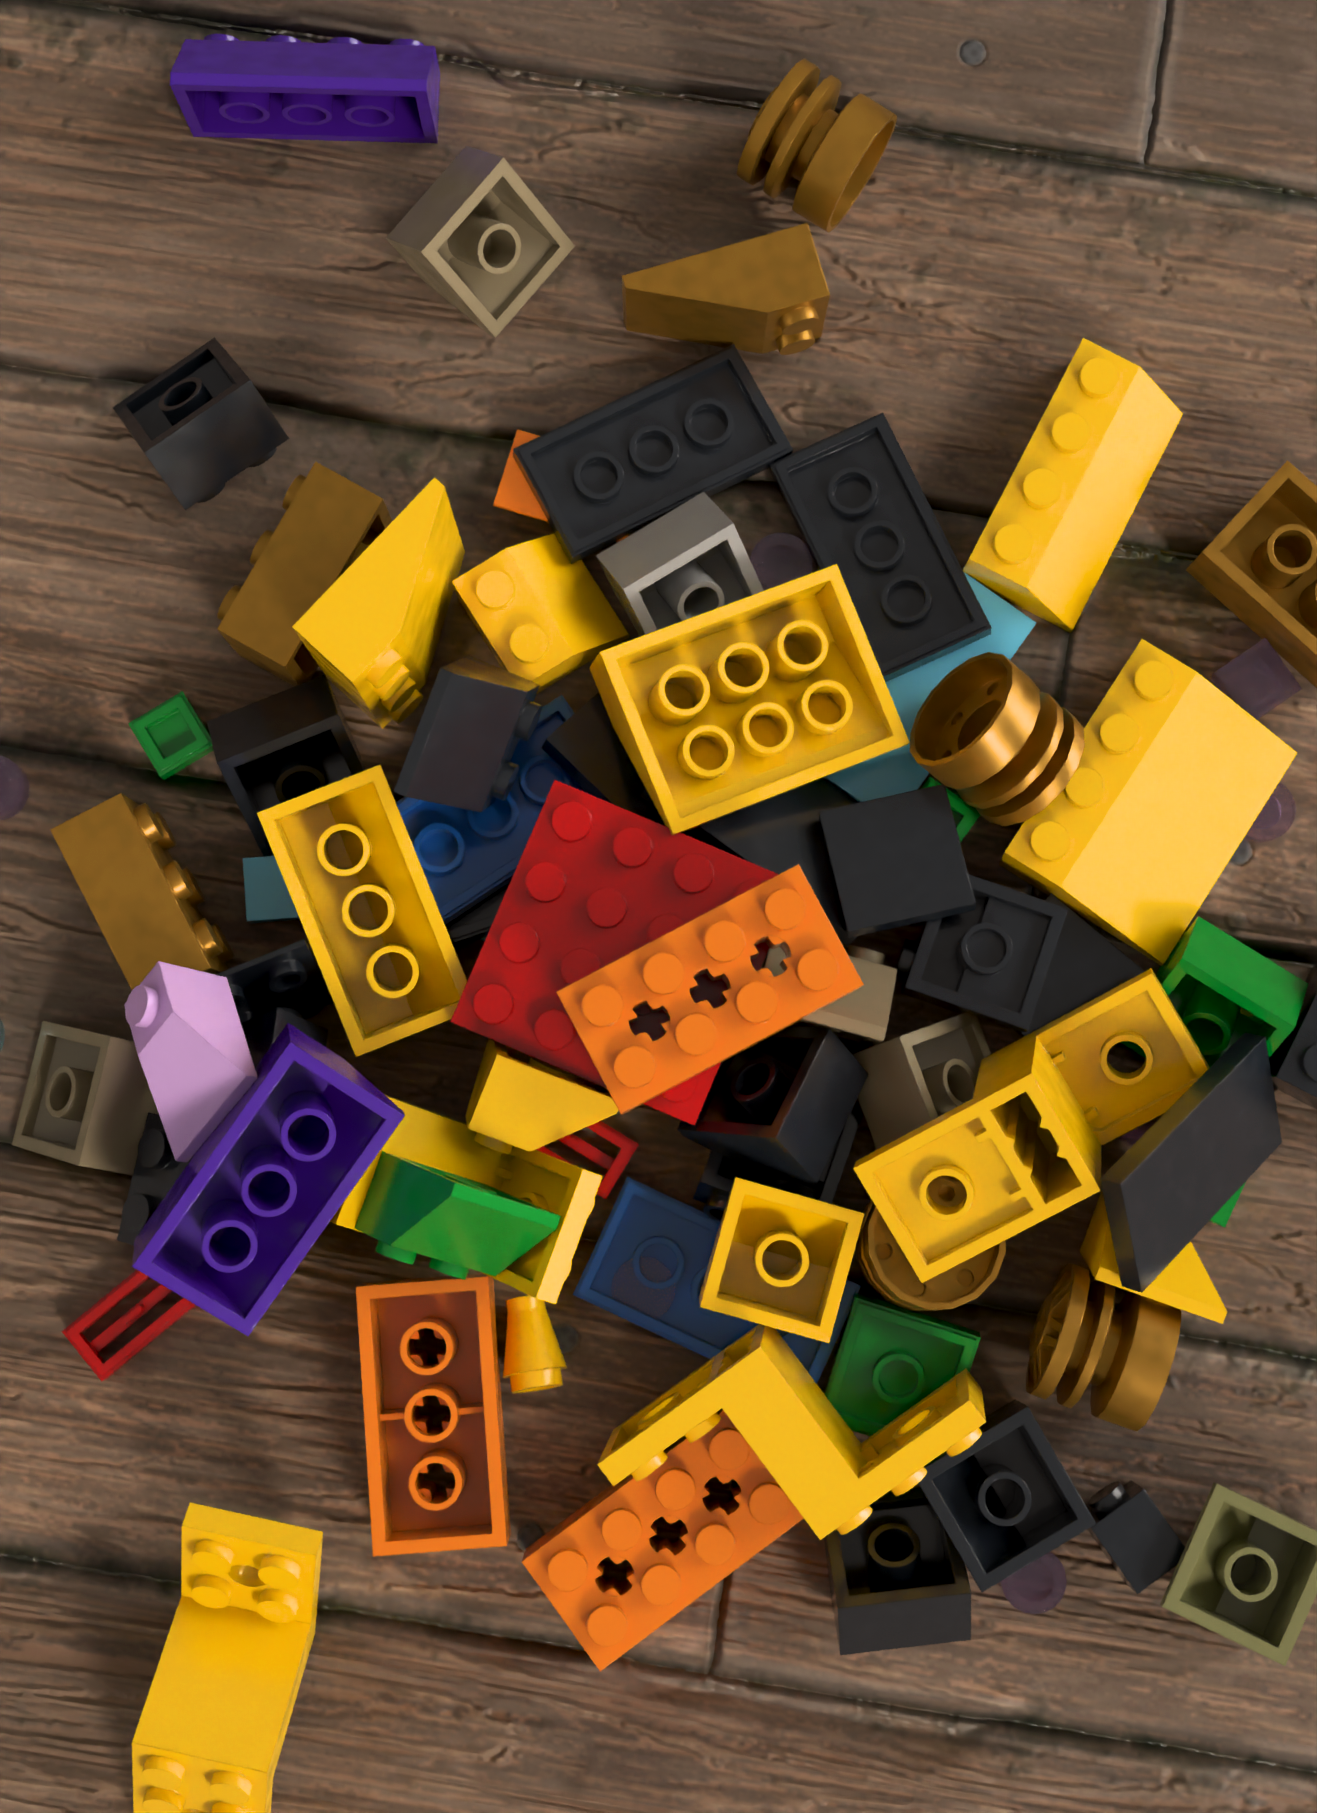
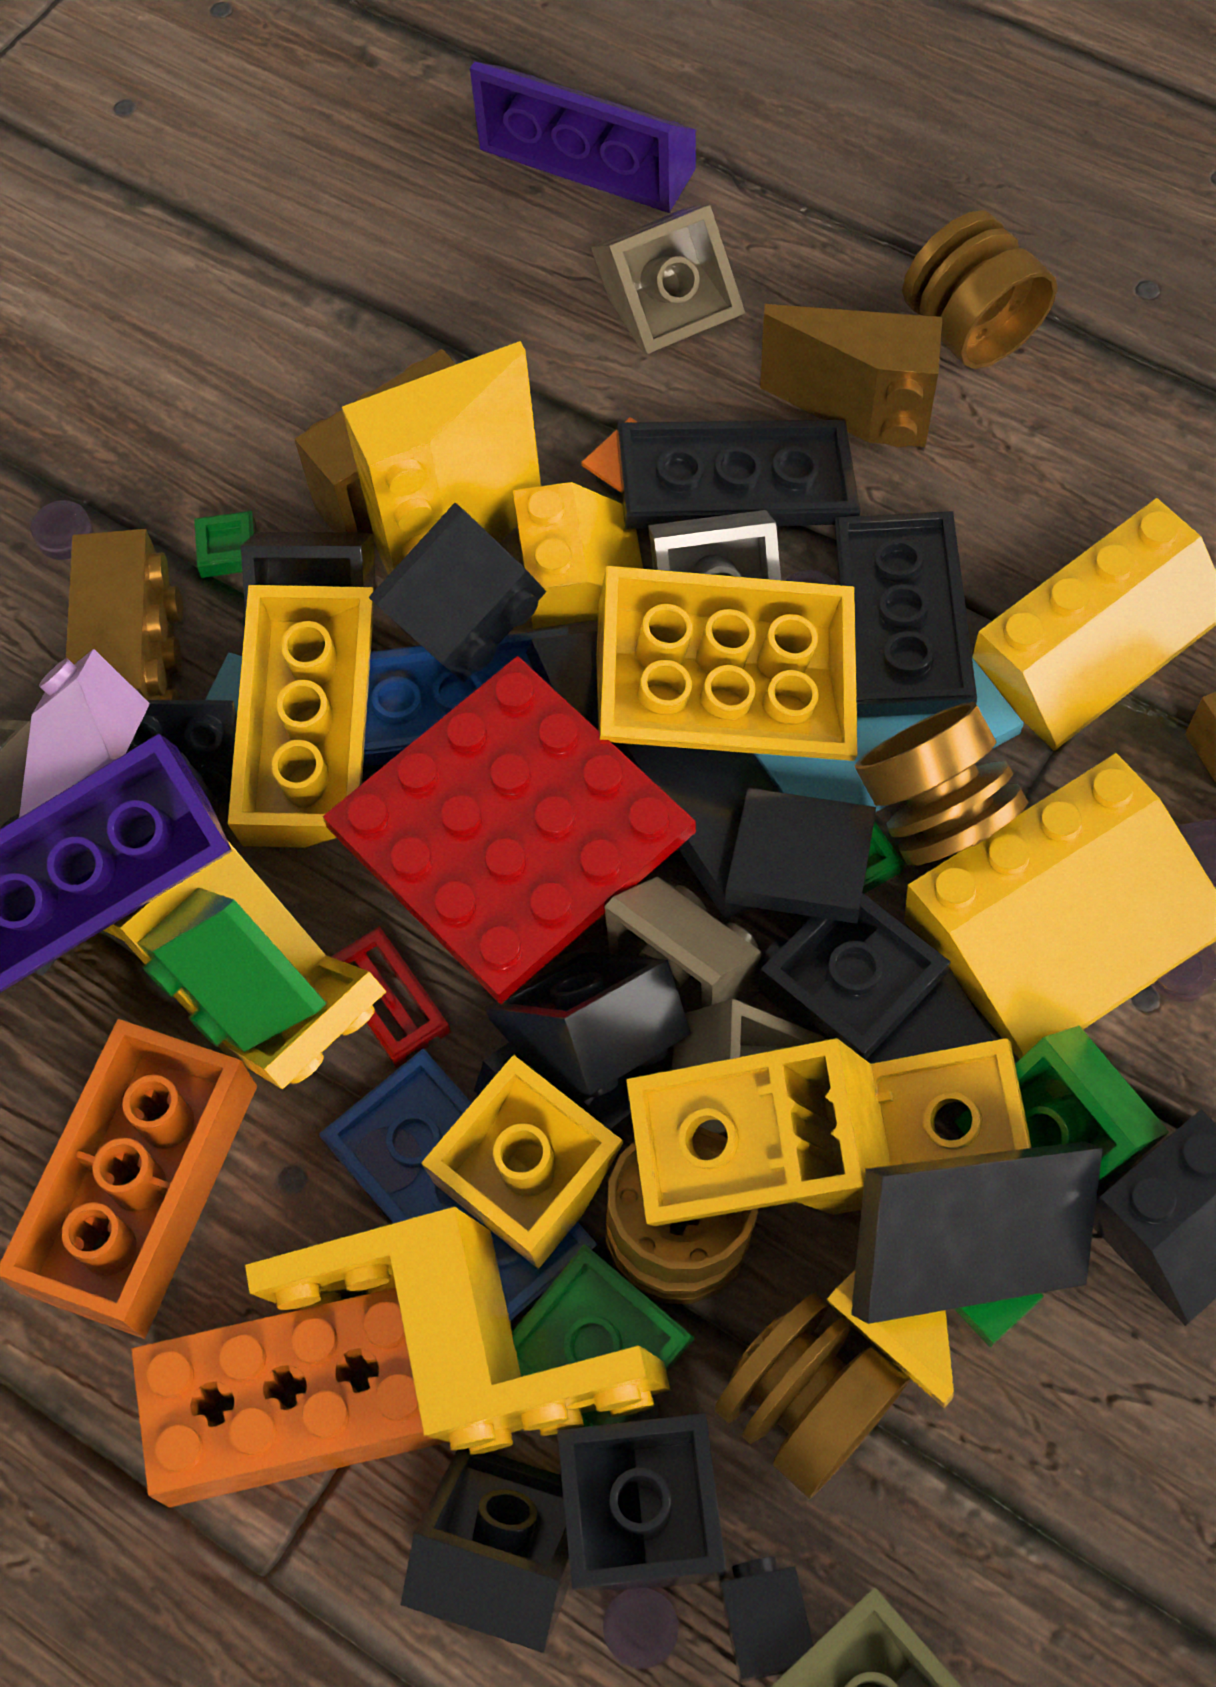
camera: 30 degrees right, 20 degrees down
(201, 424) = (374, 330): black slope -> none
(530, 1101) = (362, 920): yellow slope -> none
(531, 1347) = (254, 1168): yellow cone -> none
(720, 945) = (544, 823): orange brick -> none

